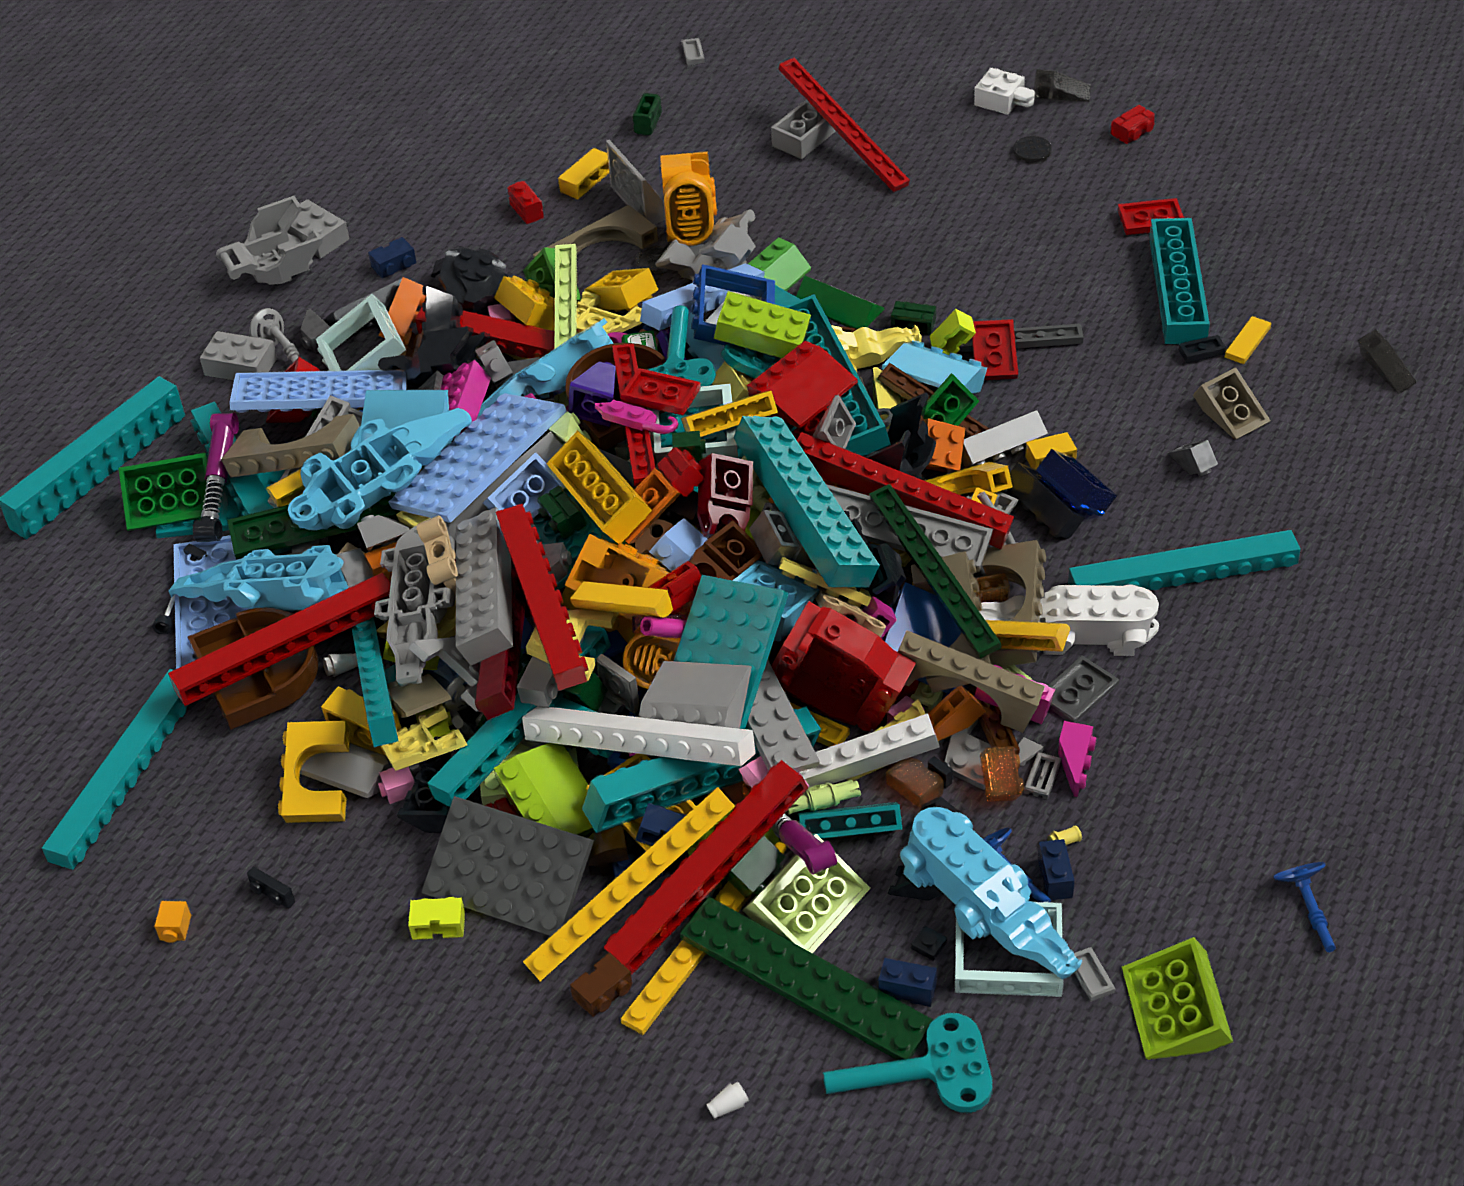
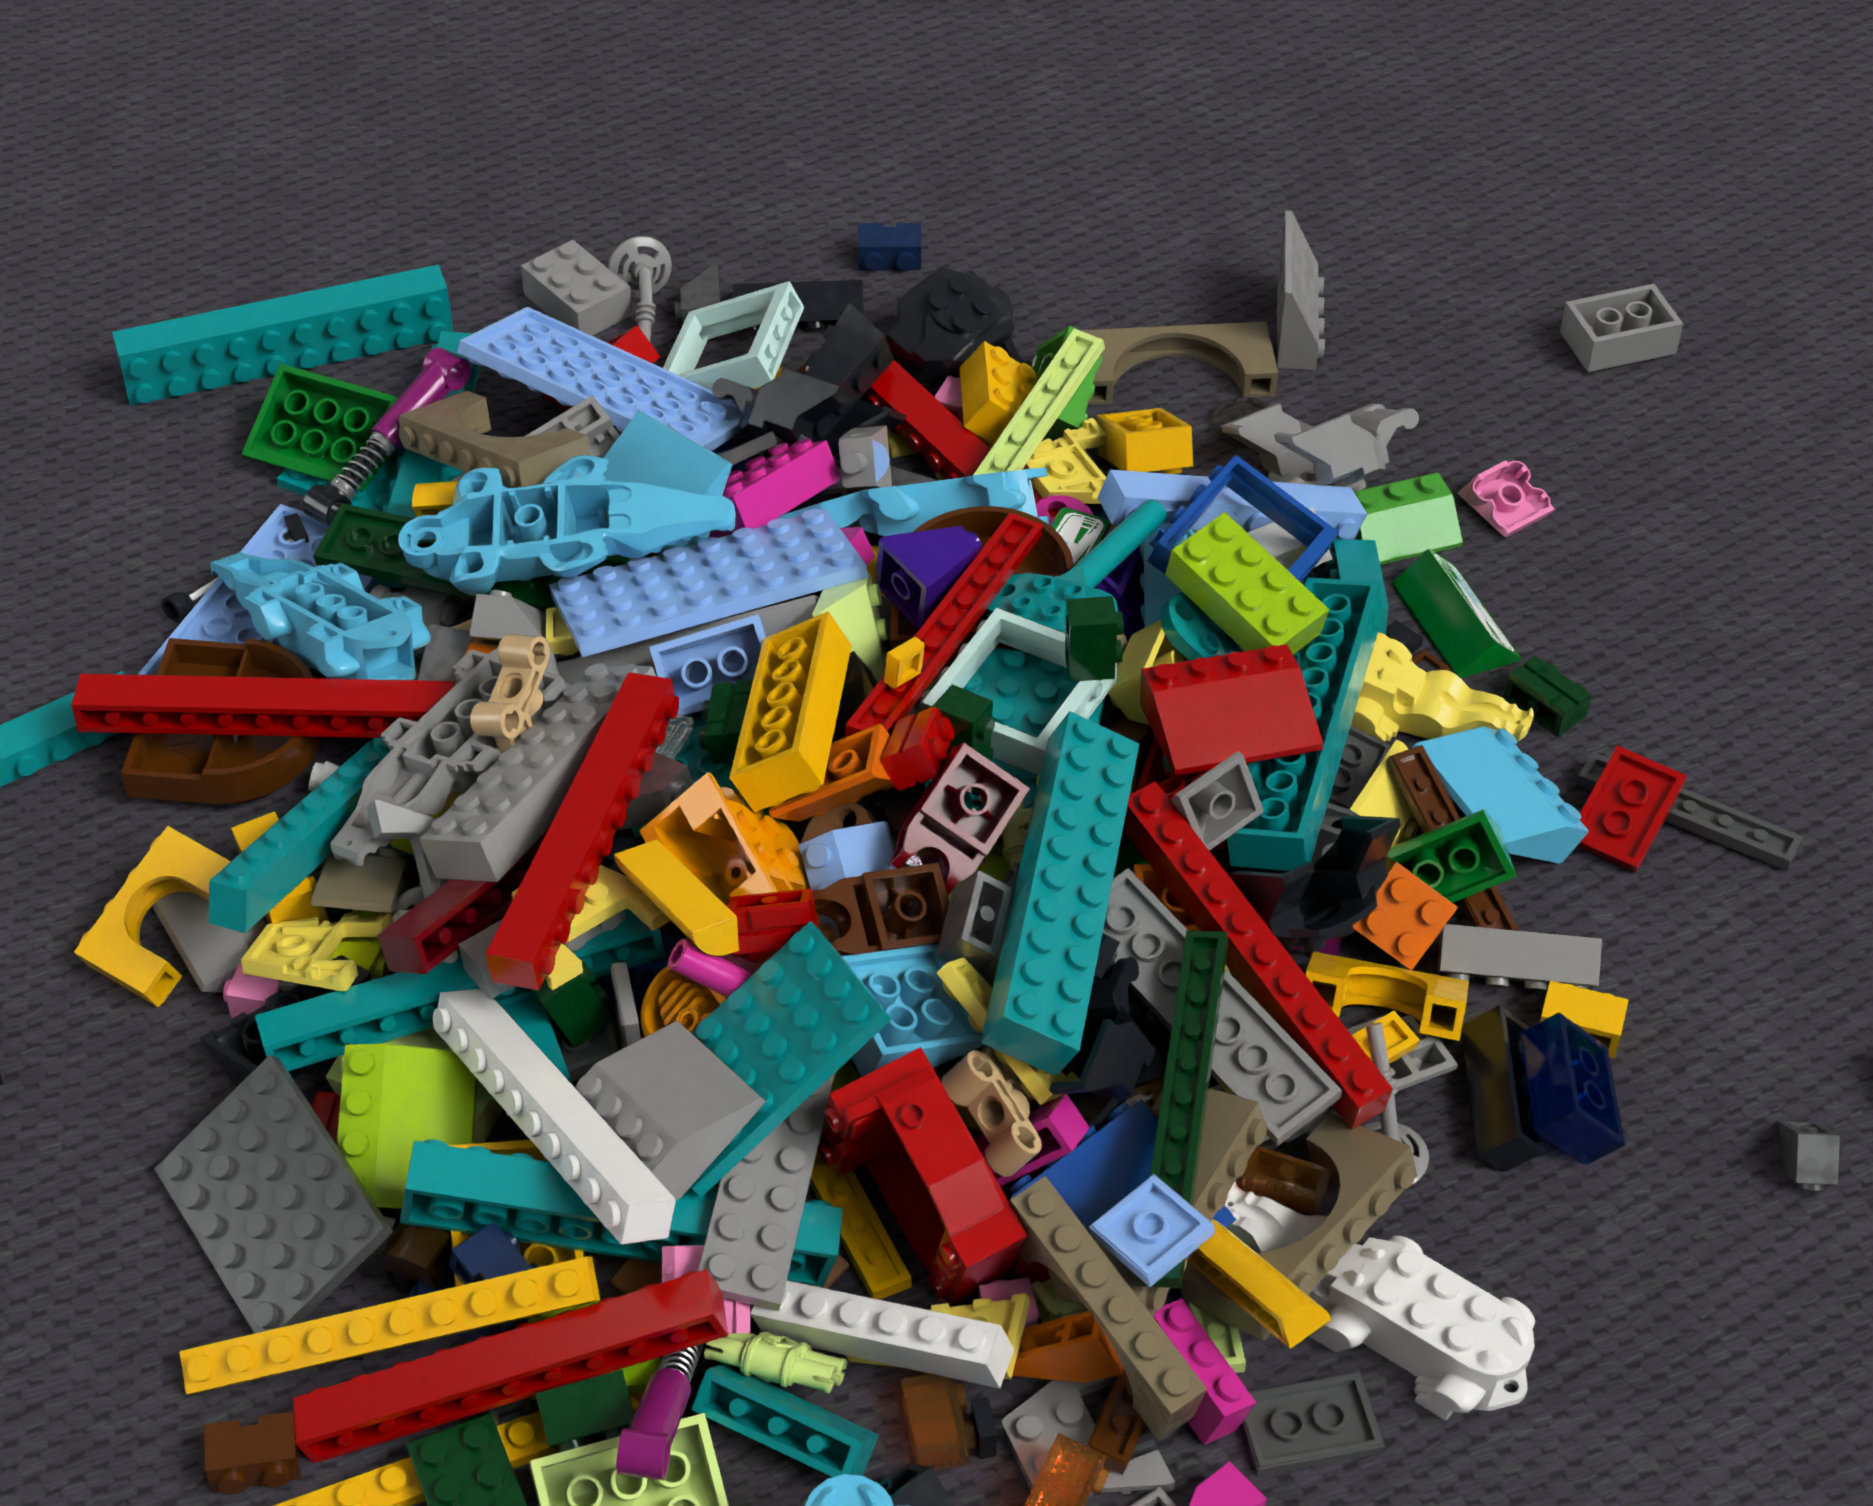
camera: 30 degrees right, 0 degrees up
(269, 250) = (738, 162): light grey piece -> none
(329, 226) = (822, 158): light grey brick -> none
(404, 306) = (810, 329): orange brick -> none
(436, 917) = (138, 1214): neon yellow brick -> none
(525, 202) = (1131, 251): red brick -> none
(584, 174) = (1242, 250): yellow brick -> none
(634, 417) = (942, 641): dark pink plate -> none
(638, 435) = (904, 662): none -> yellow tile
(647, 114) = (1409, 201): dark green brick -> none
(660, 391) = (1002, 614): red plate -> none
(688, 197) = (1338, 347): light orange brick -> none
(693, 51) = (1561, 140): light grey tile -> none
(720, 379) = (1092, 638): none -> dark green brick
(730, 414) = (1054, 697): yellow brick -> none
(815, 235) = (1507, 497): none -> bright pink slope
(844, 125) = (1678, 350): red plate -> none
(953, 332) = (1577, 750): neon yellow brick -> none
(971, 628) = (1152, 1230): none -> light blue tile
(1193, 563) = (1656, 1325): teal brick -> none

